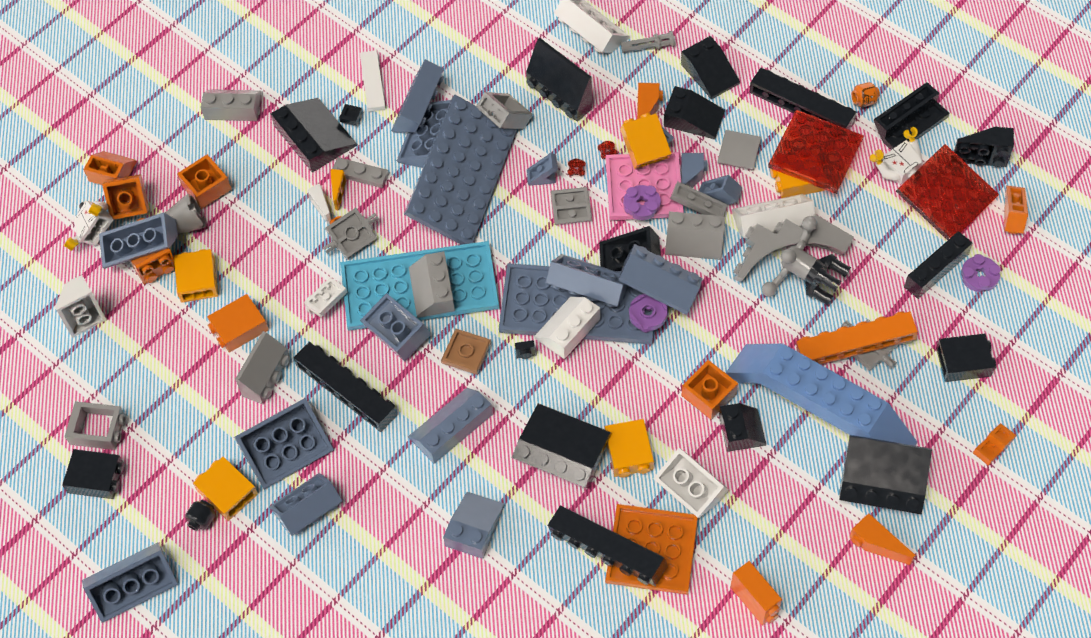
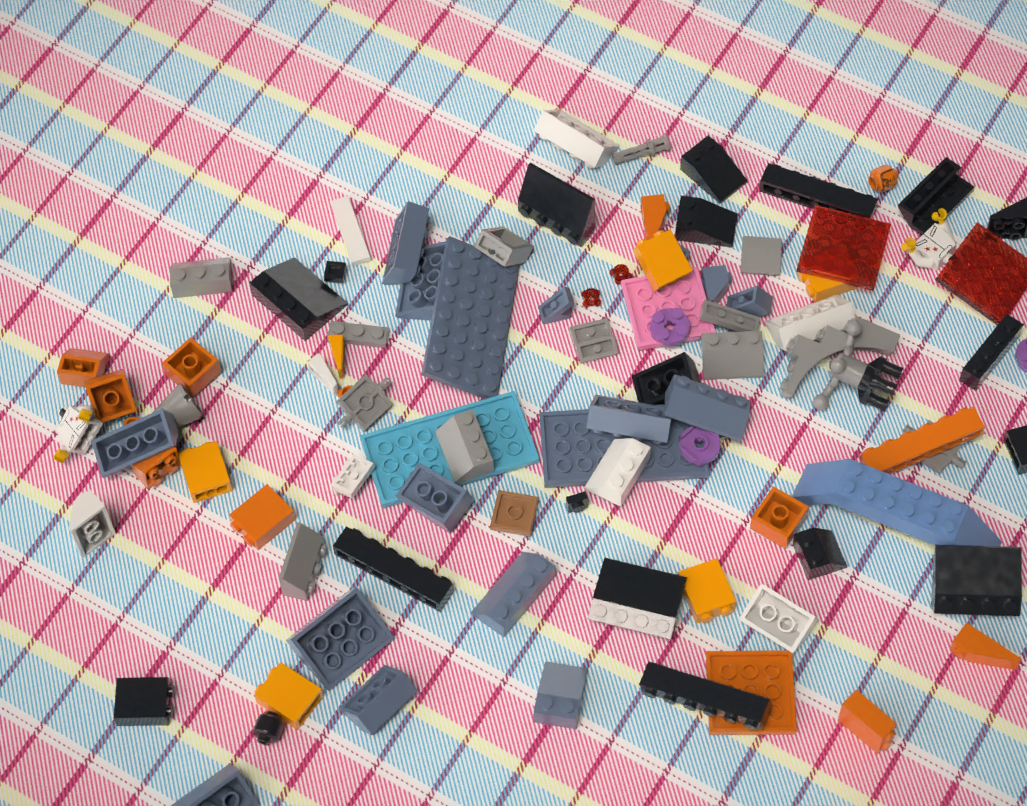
camera: 10 degrees left, 0 degrees up
(77, 419) = (113, 666): light grey window -> none

